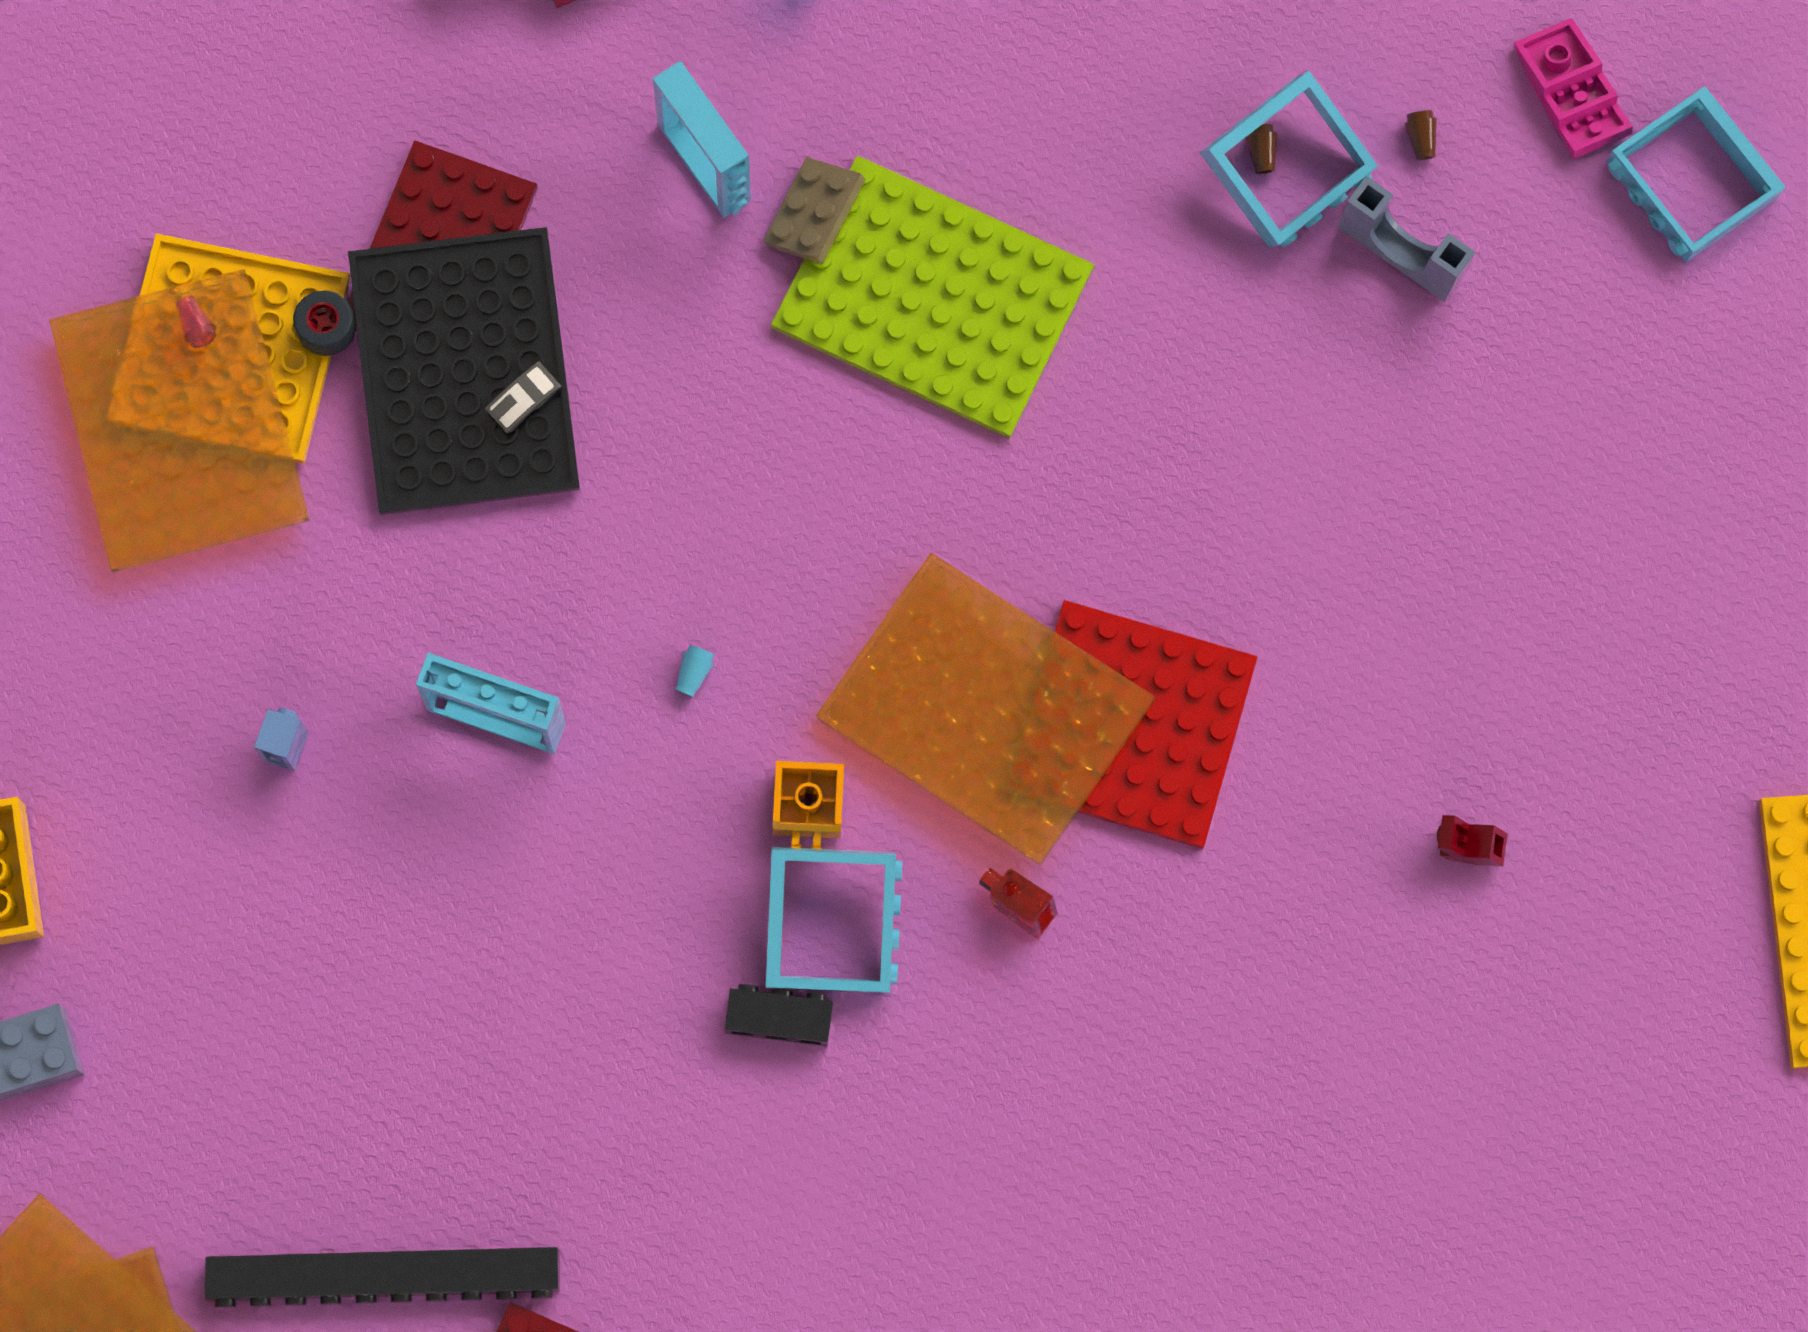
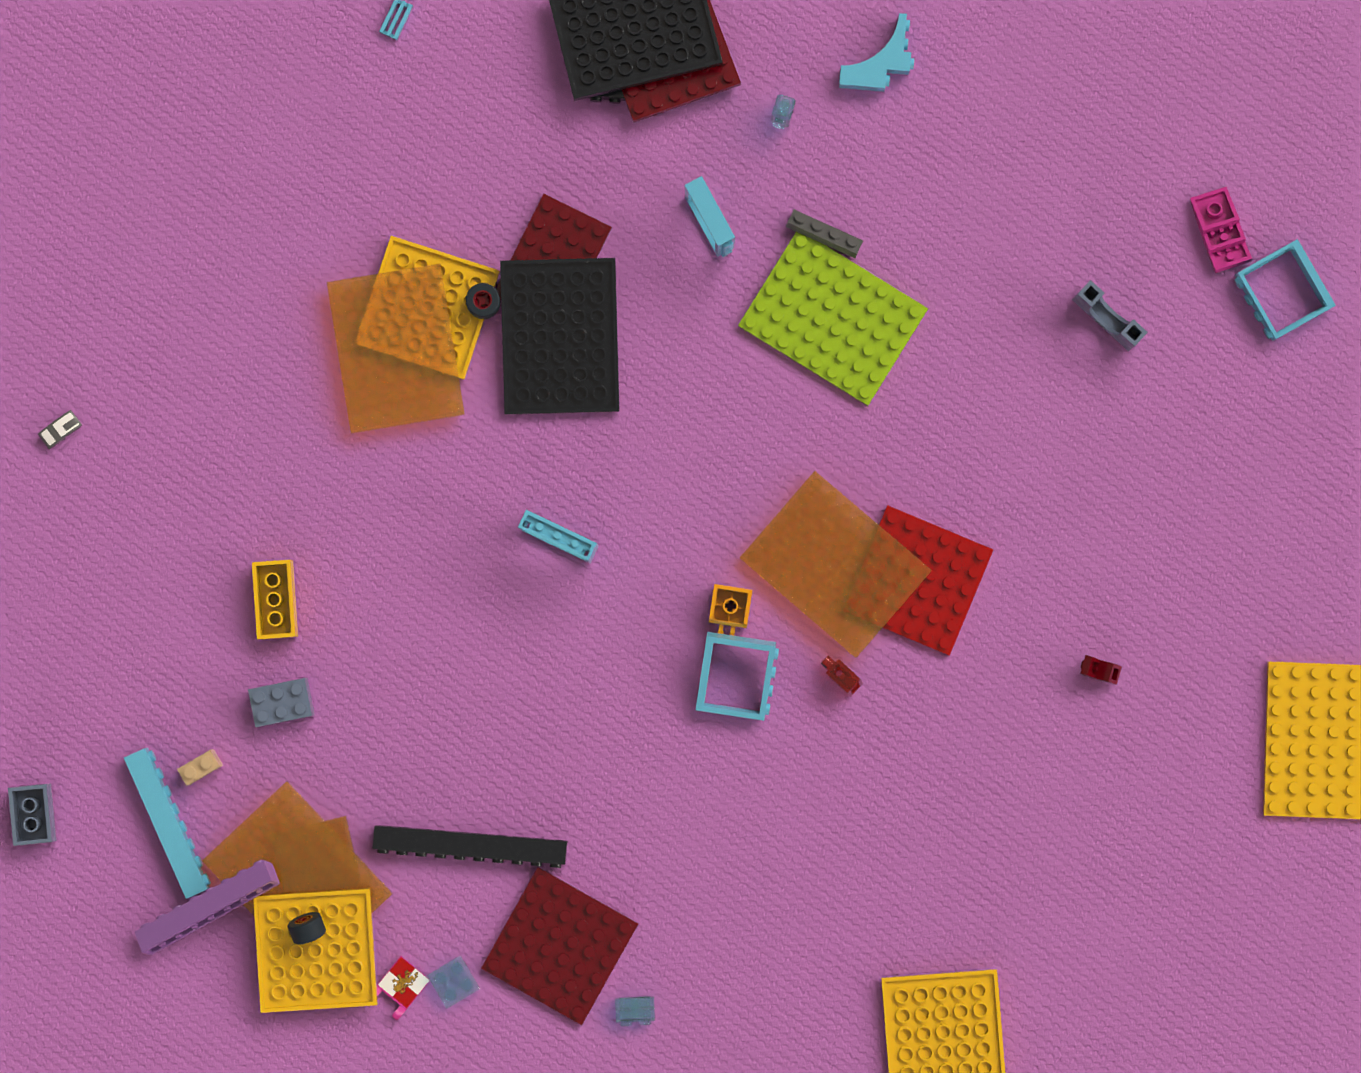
camera: 15 degrees right, 10 degrees up
(196, 325) = (409, 295): clear pink cone -> none
(281, 738) = (439, 540): medium blue brick -> none
(523, 397) = (592, 357): slope -> none
(693, 669) = (673, 523): medium azure cone -> none
(779, 1015) = (701, 725): black brick -> none
(814, 210) = (770, 260): dark tan plate -> none
(902, 159) = (824, 233): none -> dark grey plate
(1243, 196) = (1032, 234): medium azure window -> none
(1263, 148) = (1034, 248): reddish brown cone -> none
(1422, 133) = (1128, 249): reddish brown cone -> none

